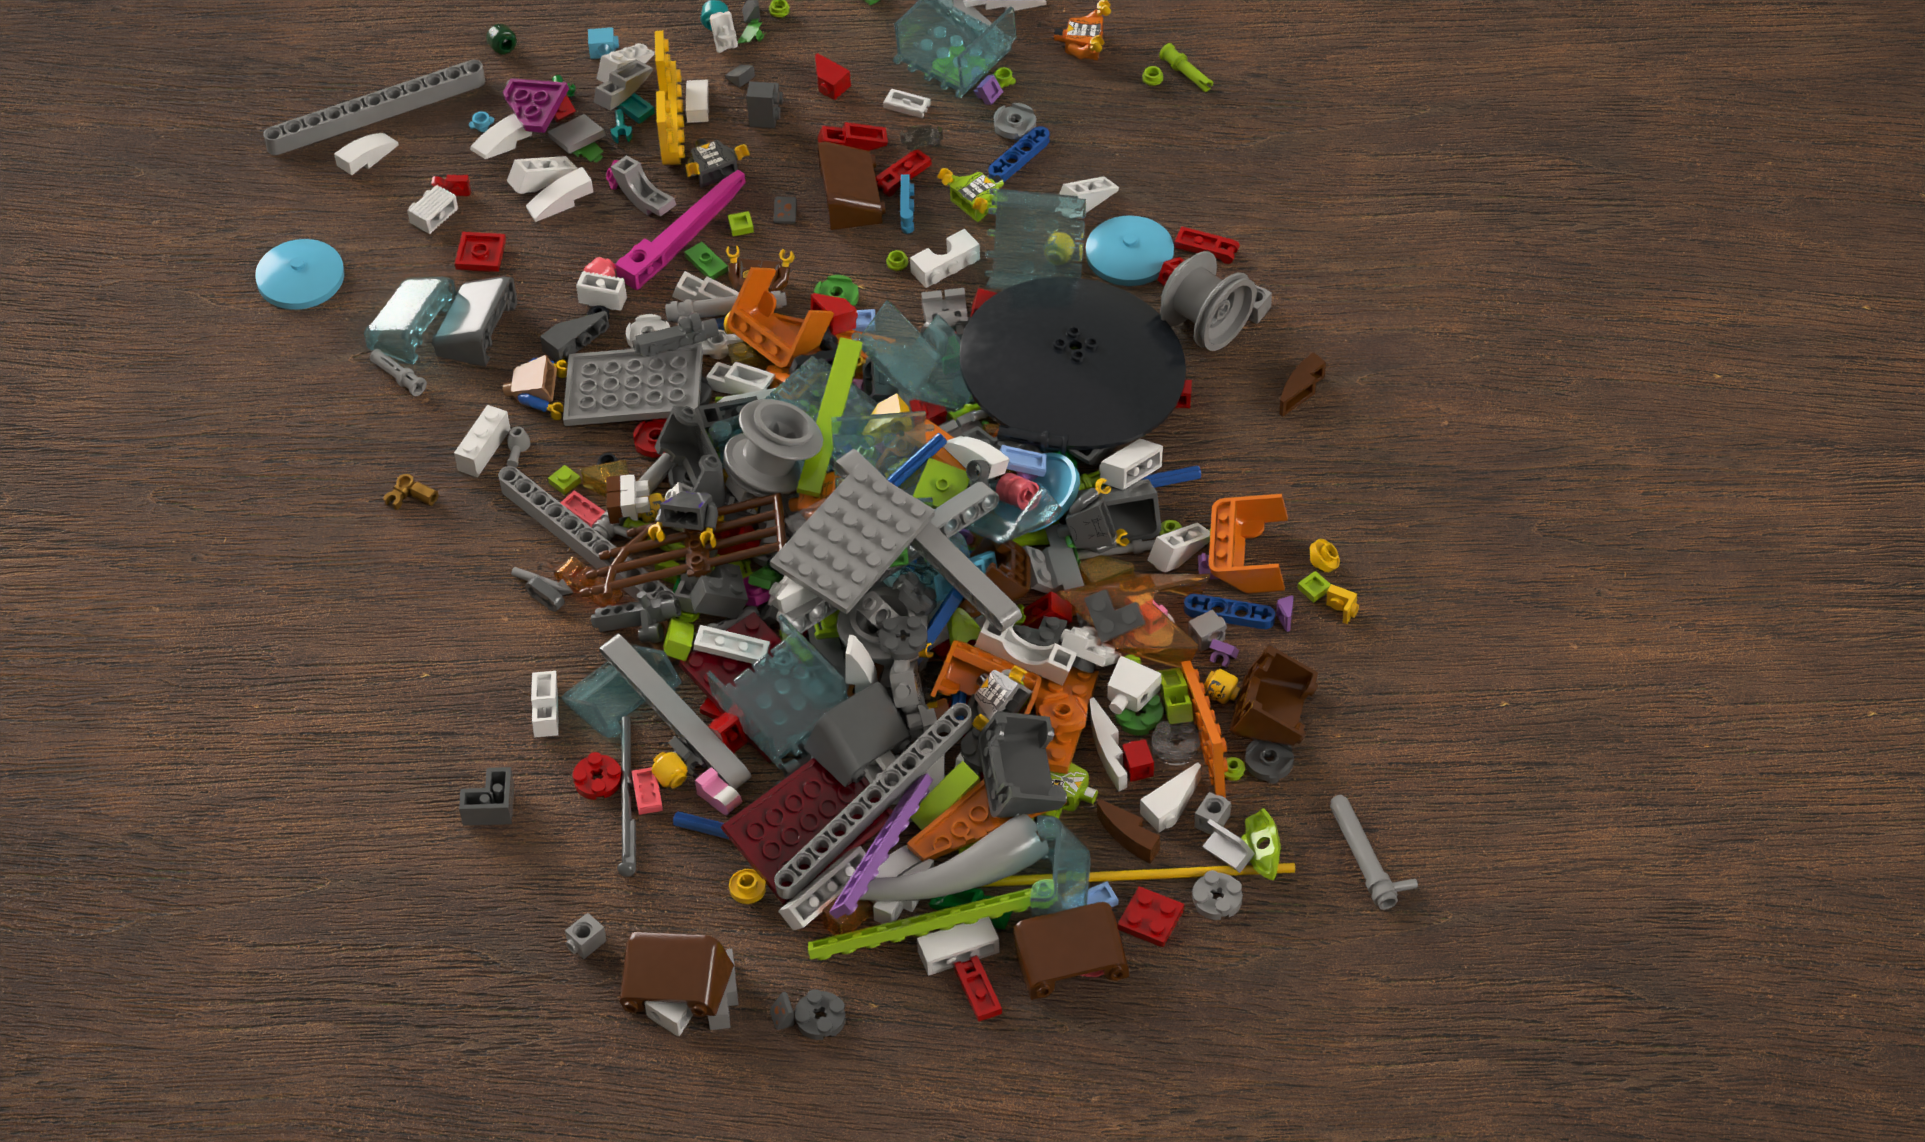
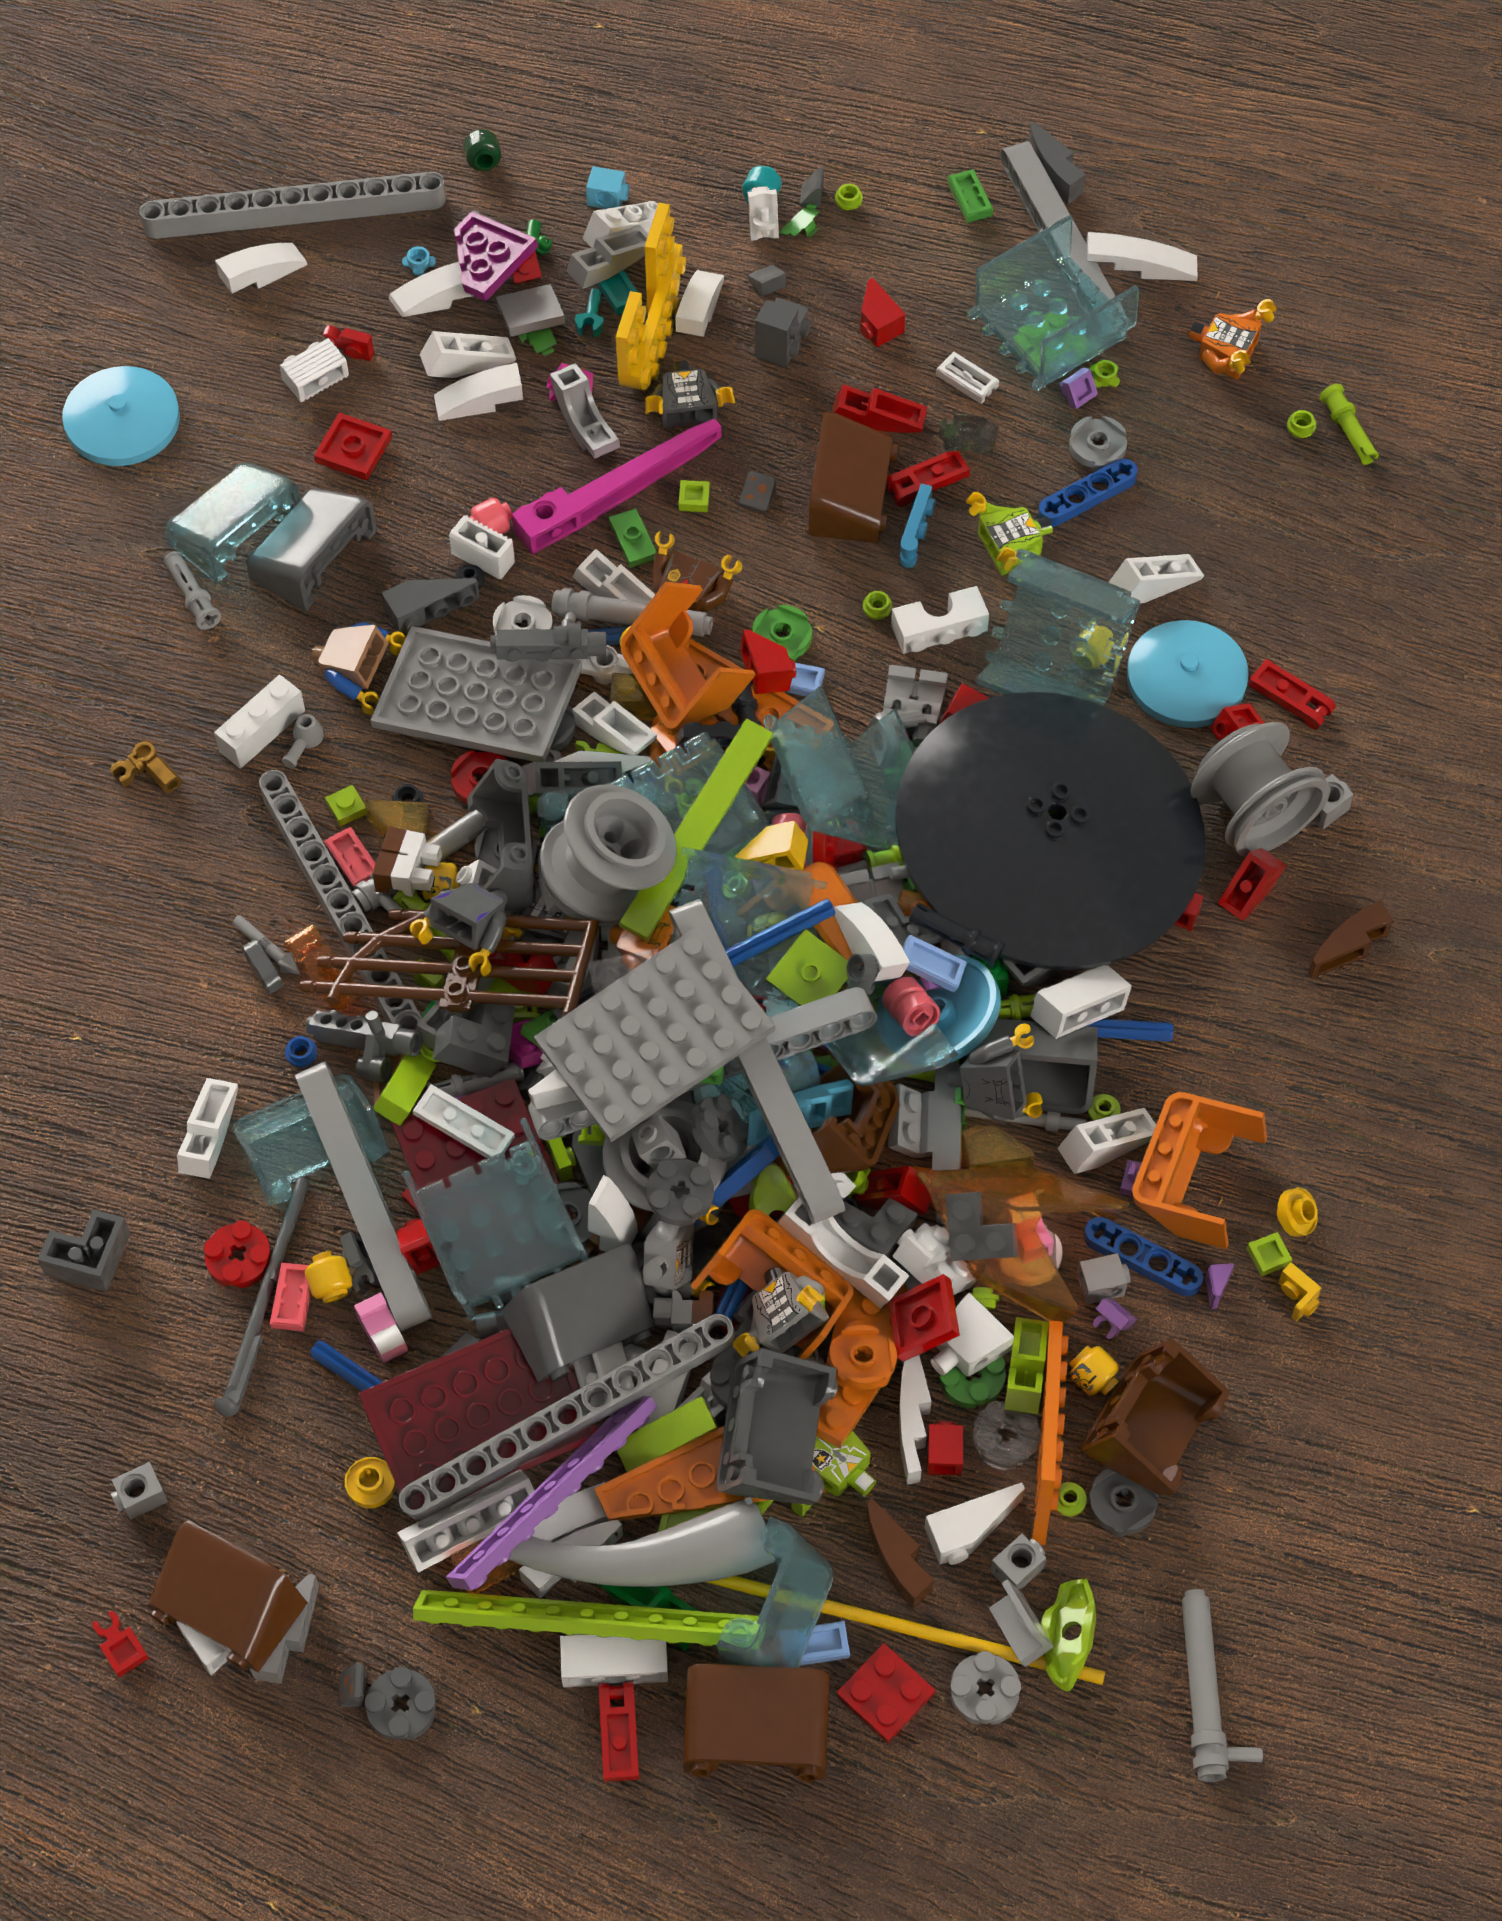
camera: 15 degrees right, 10 degrees up
(595, 636) = (297, 1044): none -> blue plate
(610, 1034) = (122, 1647): none -> red plate
(1096, 677) = (923, 1317): none -> red plate
(1221, 366) = (1251, 883): none -> red slope

